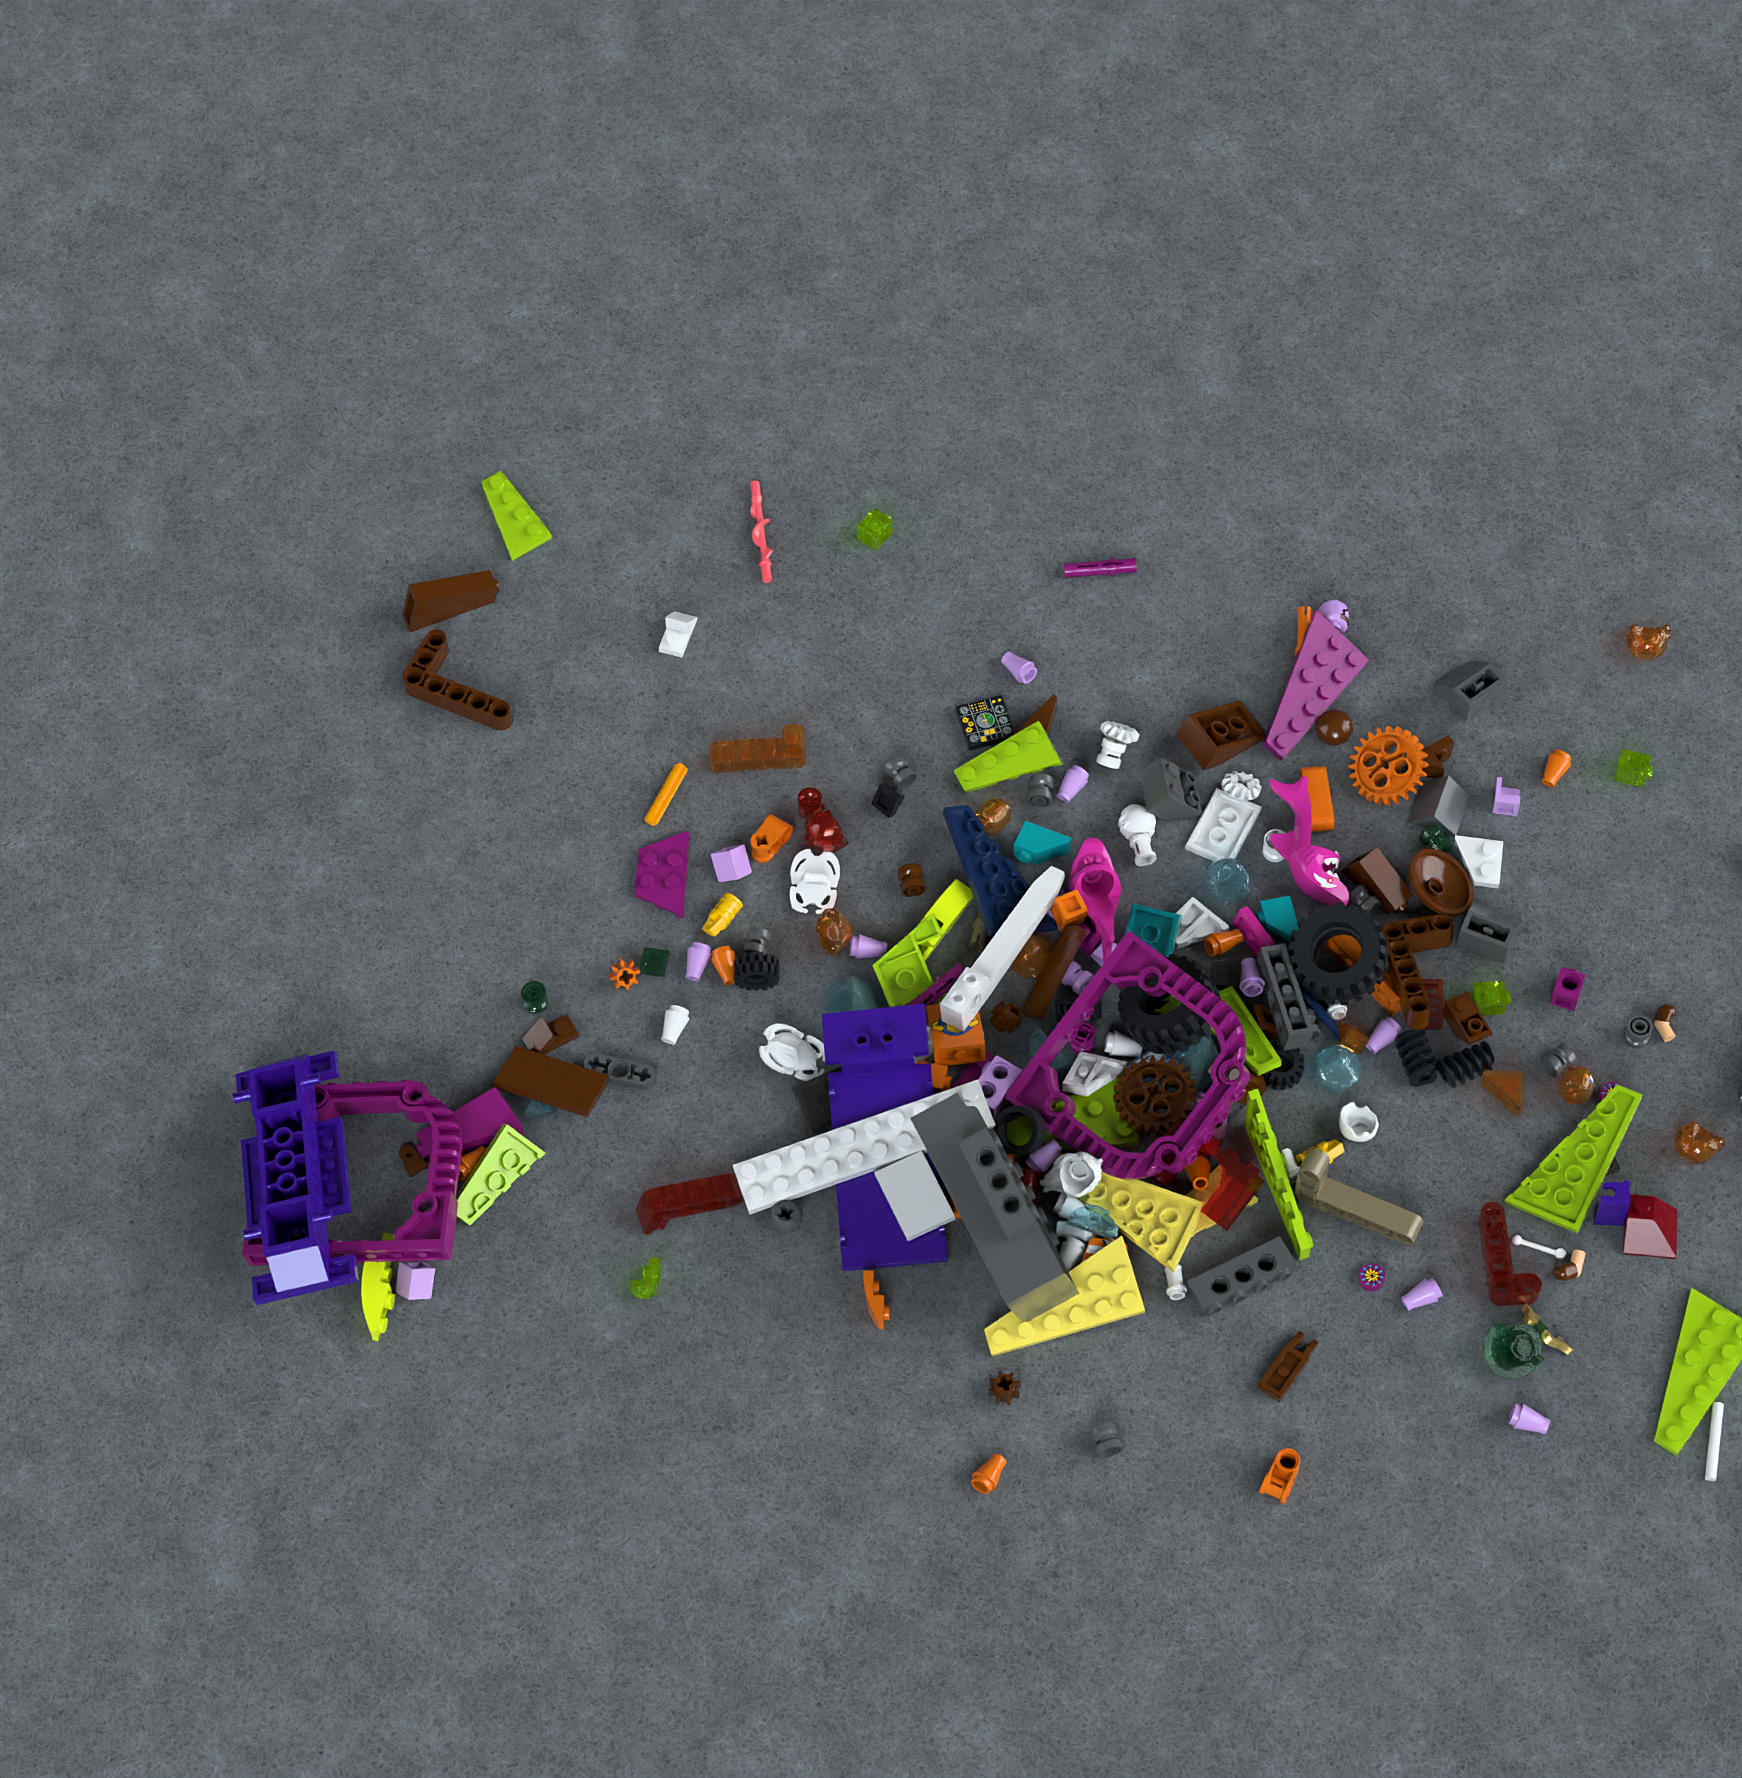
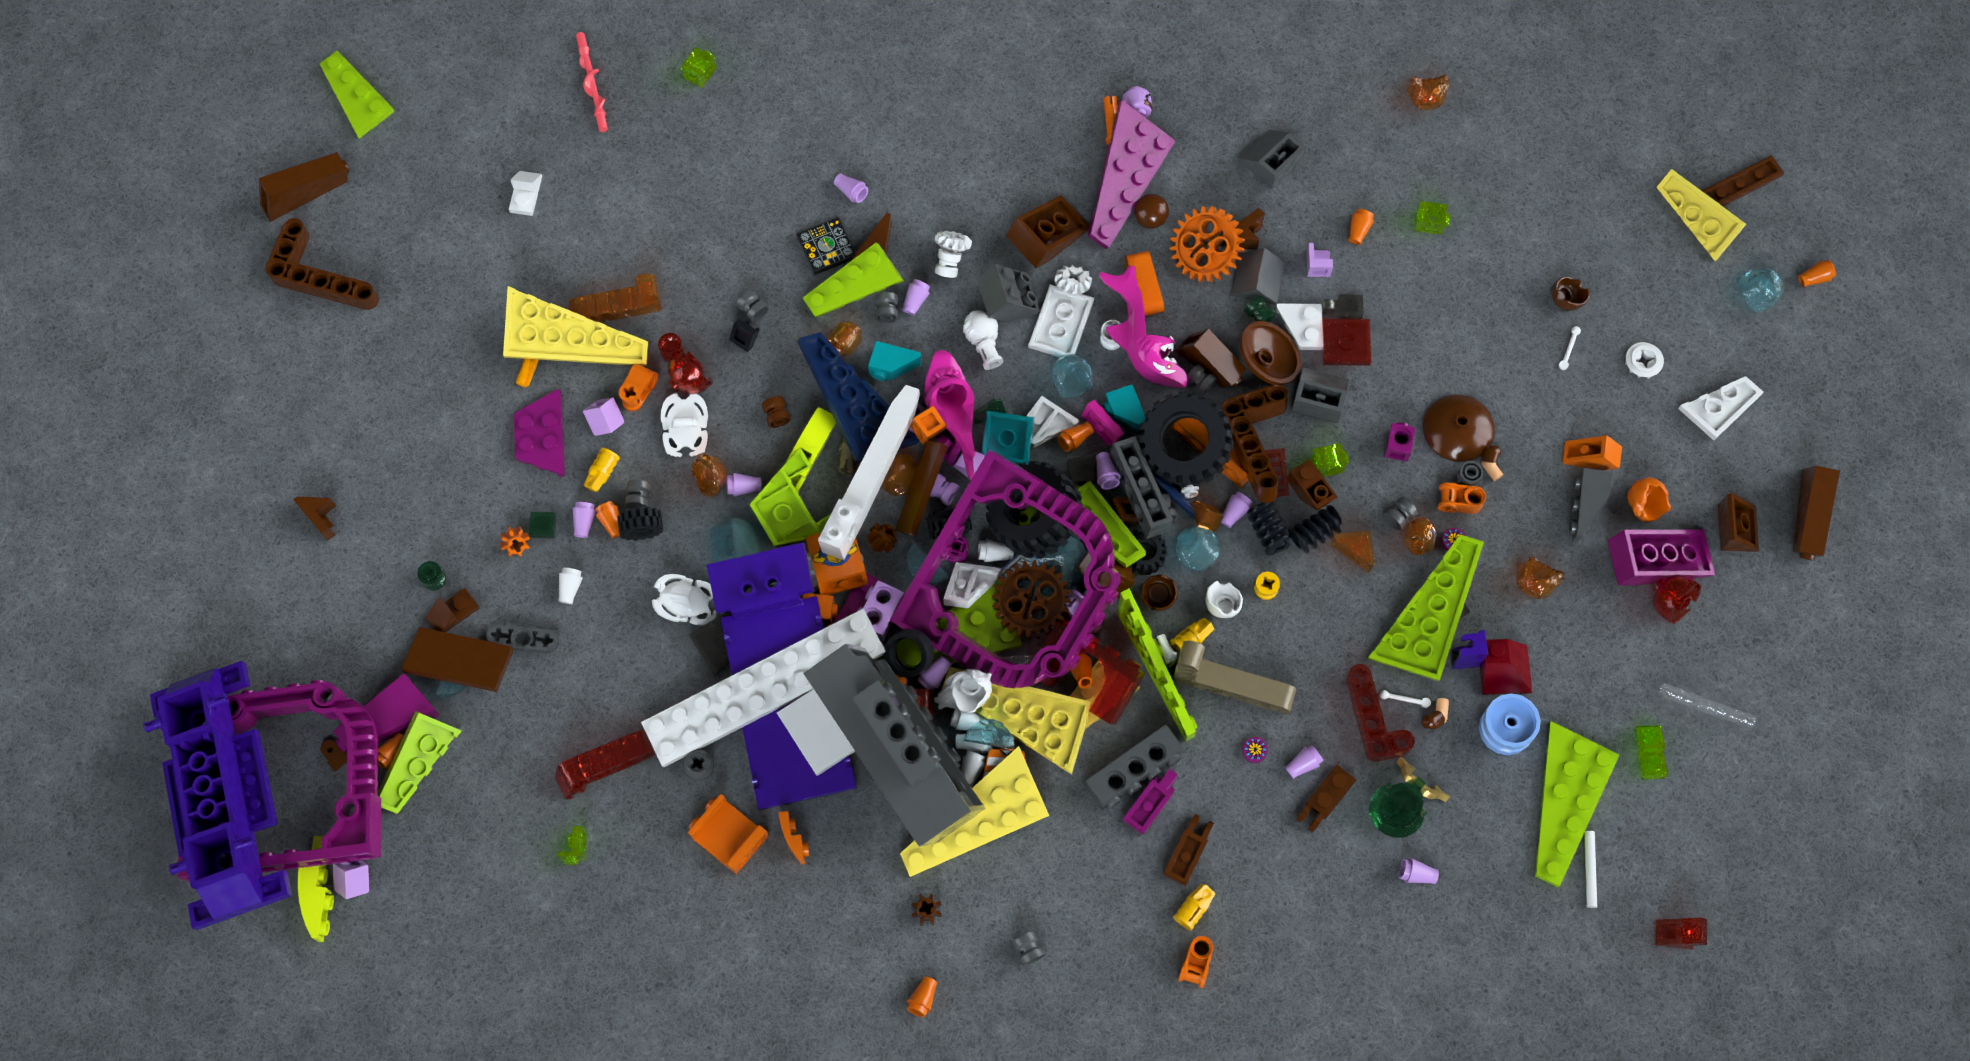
camera: 10 degrees left, 10 degrees up
(423, 920) = (316, 510): none -> reddish brown slope
(693, 774) = (557, 334): none -> light yellow wing
(806, 1288) = (727, 834): none -> orange panel
(939, 988) = (814, 519): magenta pin -> none
(1105, 567) = (915, 80): magenta pin -> none
(1124, 908) = (979, 414): none -> clear green cone
(1176, 1289) = (1074, 783): white pin -> none
(1254, 1314) = (1151, 802): none -> magenta hinge
(1285, 1422) = (1194, 906): none -> yellow hinge
(1290, 1107) = (1159, 593): none -> reddish brown hair
(1401, 1119) = (1265, 590): none -> yellow wheel
(1442, 1333) = (1327, 796): none -> reddish brown hinge
(1525, 882) = (1346, 342): none -> clear red plate
(1530, 847) = (1347, 306): none -> clear smoke plate
(1624, 1053) = (1459, 498): none -> orange piece
(1633, 995) = (1455, 440): none -> reddish brown dish
(1645, 1283) = (1519, 731): none -> light blue wheel

